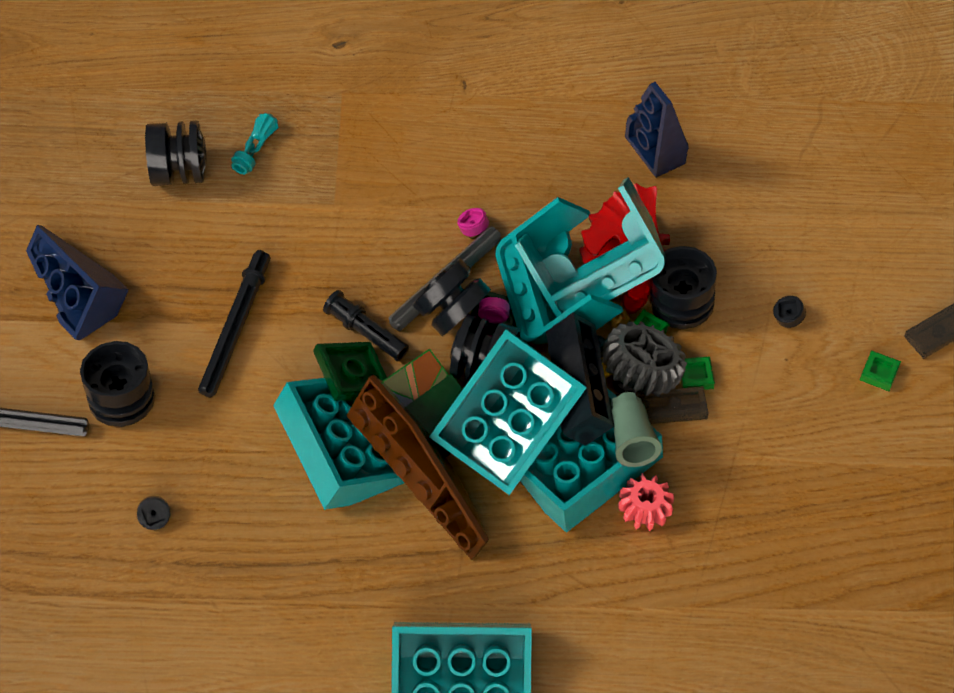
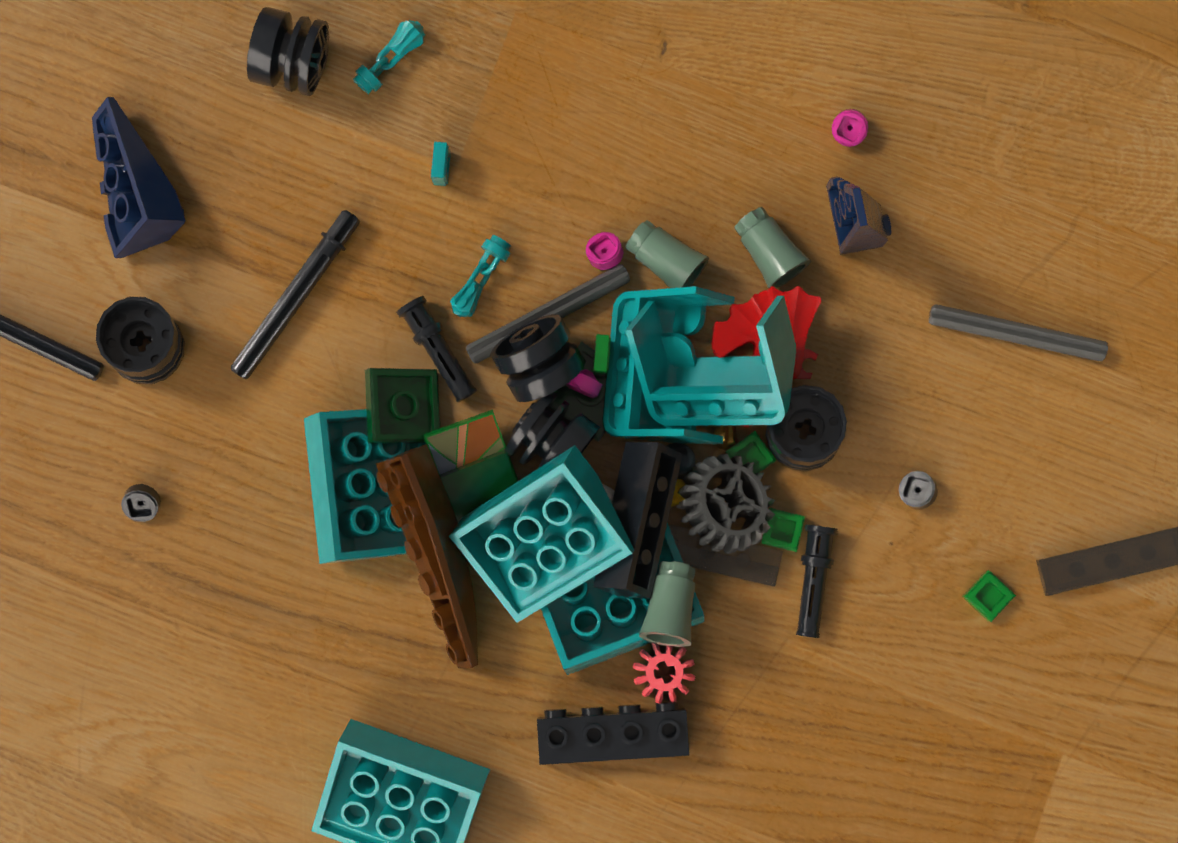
camera: 20 degrees right, 25 degrees up
(321, 199) = (440, 163): none -> teal tile
(387, 245) = (466, 299): none -> teal piece
(500, 283) = (601, 355): none -> green tile
(516, 206) = (666, 256): none -> sand green plant
(596, 177) = (770, 248): none -> sand green plant
(623, 564) = (612, 735): none -> black brick
(626, 91) = (850, 127): none -> dark pink tile
(731, 385) = (808, 625): none -> black pin
(813, 186) = (1018, 332): none -> dark grey axle

